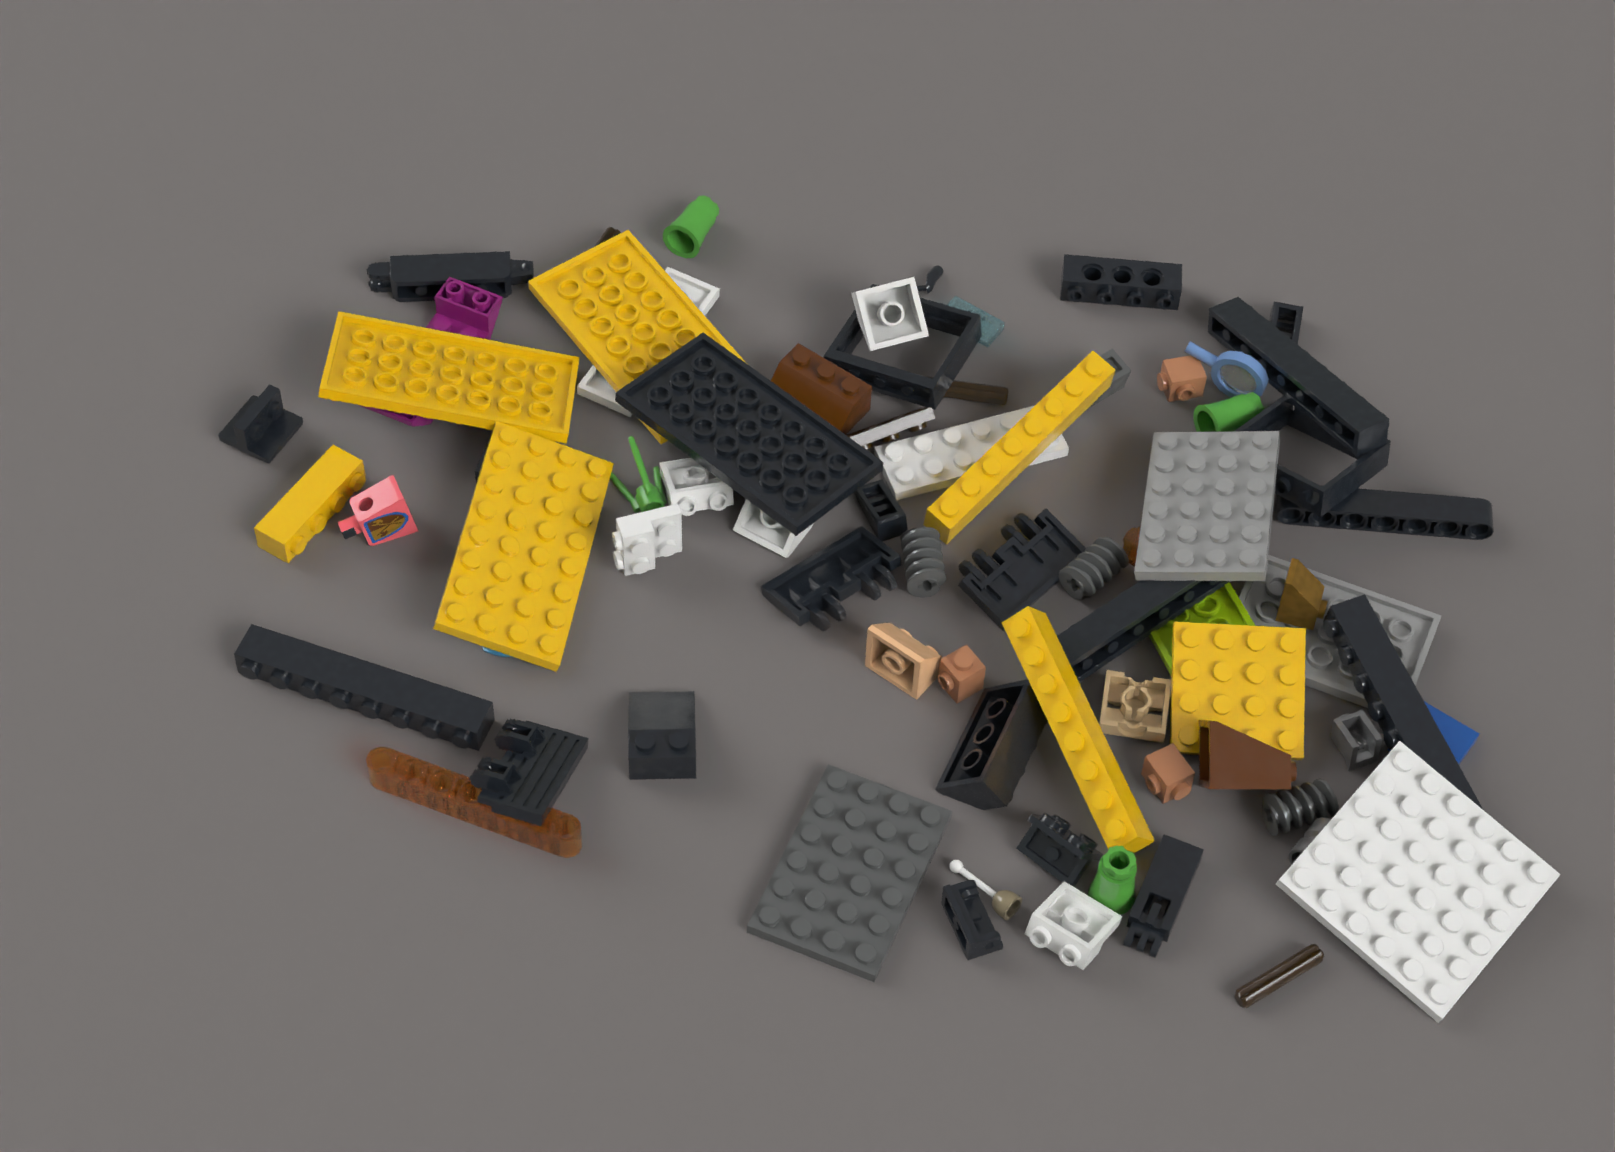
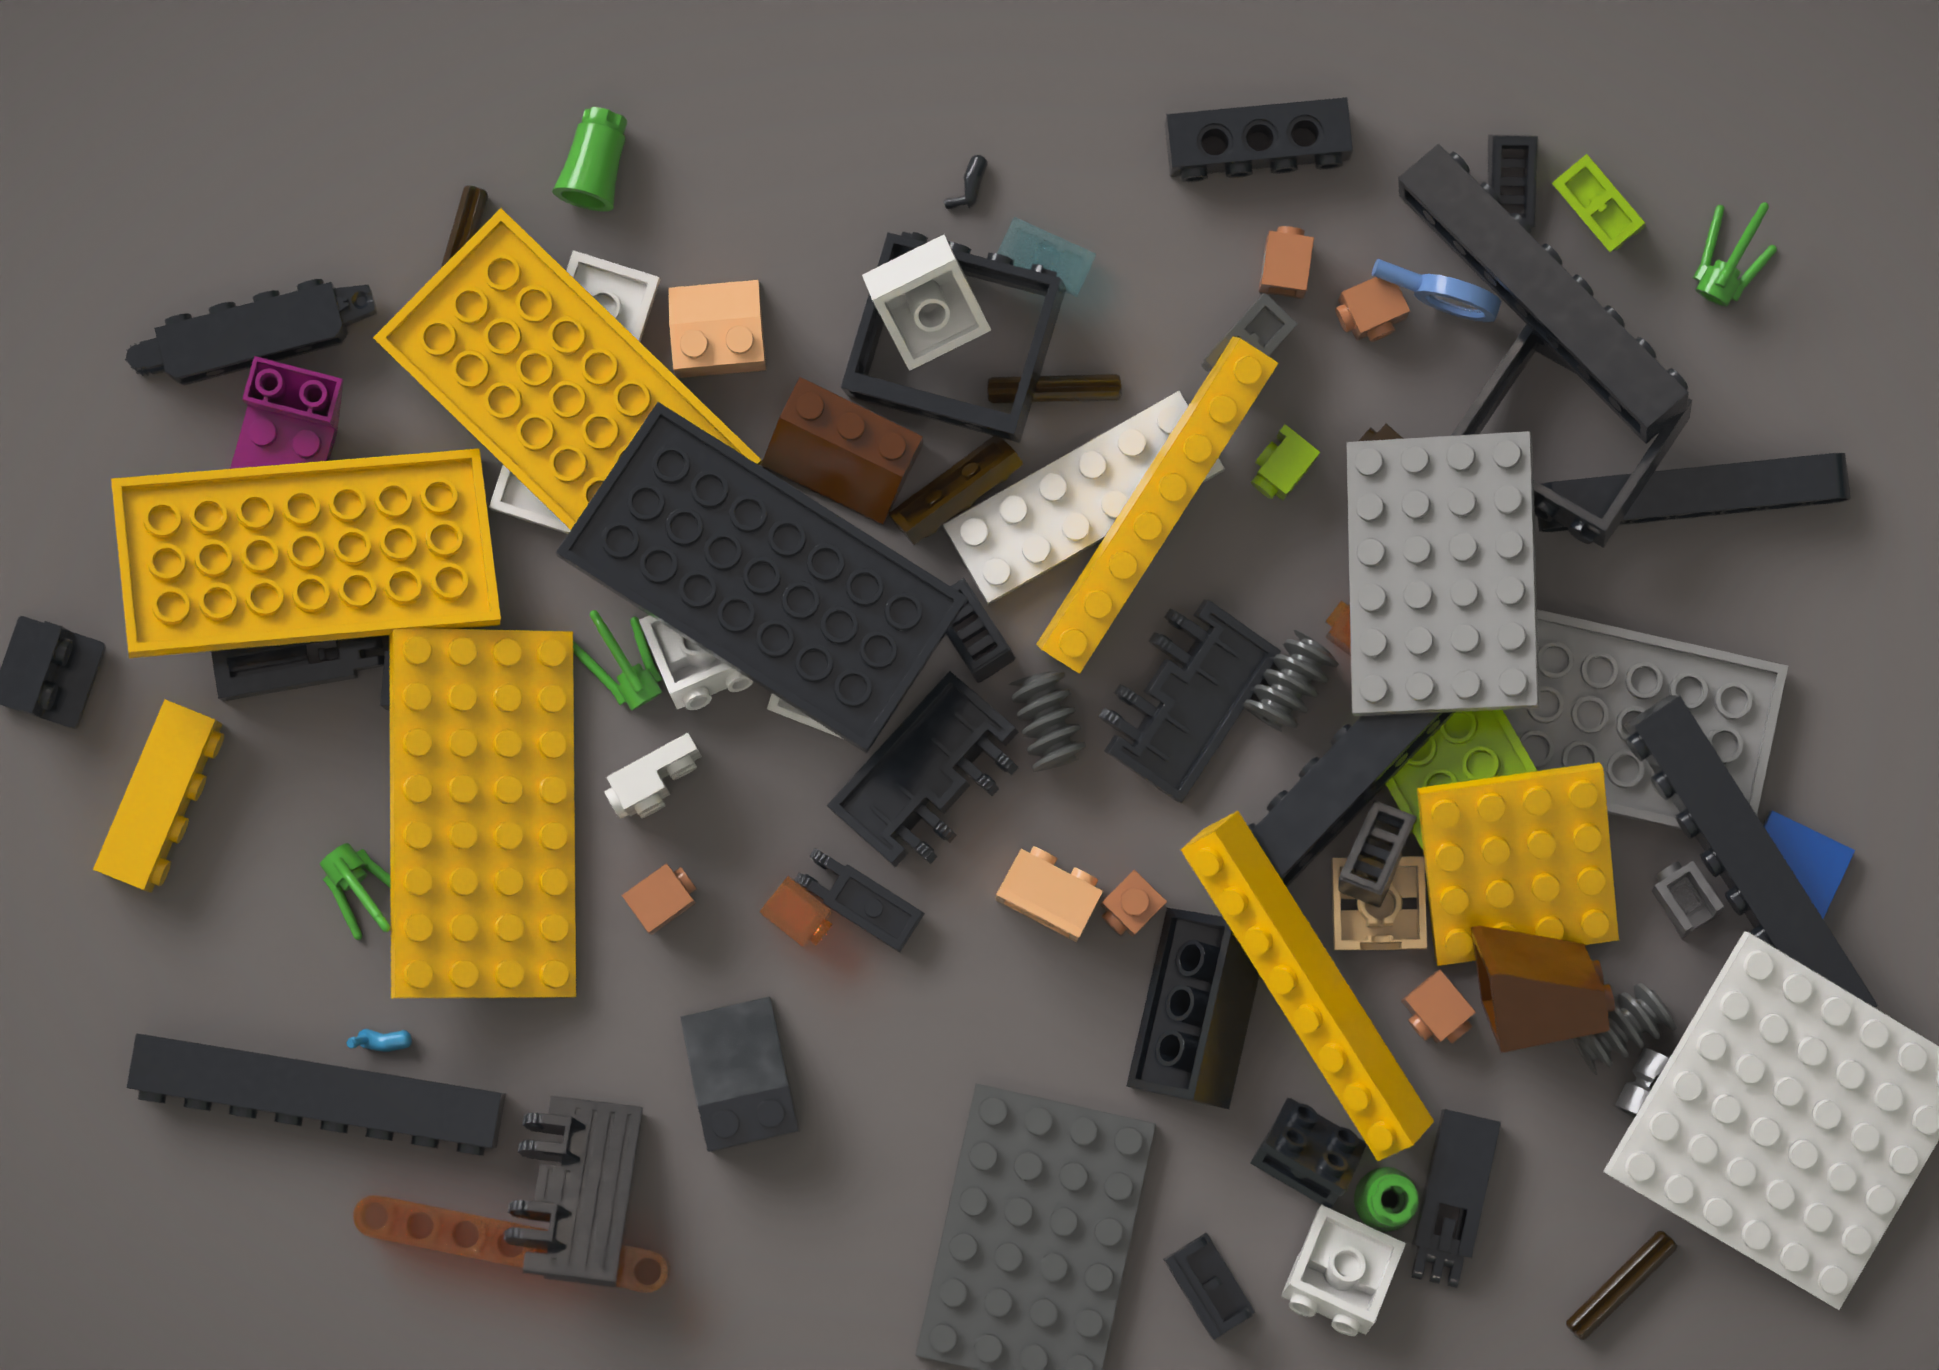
camera: 10 degrees left, 30 degrees up
(379, 514) = (276, 796): coral torso -> none
(415, 447) = (287, 667): none -> black hinge
(425, 568) = (345, 869): none -> bright green plant
(425, 673) = (381, 1042): none -> dark azure piece
(633, 613) = (661, 897): none -> nougat brick
(725, 641) = (797, 913): none -> clear orange brick
(750, 326) = (716, 329): none -> light nougat slope
(772, 644) = (864, 902): none -> black hinge
(1003, 902) = (1245, 1249): dark tan hinge -> none
(1110, 450) = (1283, 464): none -> lime brick
(1130, 344) = (1286, 262): none -> nougat brick
(1135, 670) = (1364, 889): none -> black slope
(1227, 414) = (1449, 367): bright green plant -> none
(1301, 598) = (1591, 699): pearl gold slope -> none
(1341, 347) = (1599, 203): none -> lime hinge
(1416, 403) = (1721, 281): none -> bright green plant

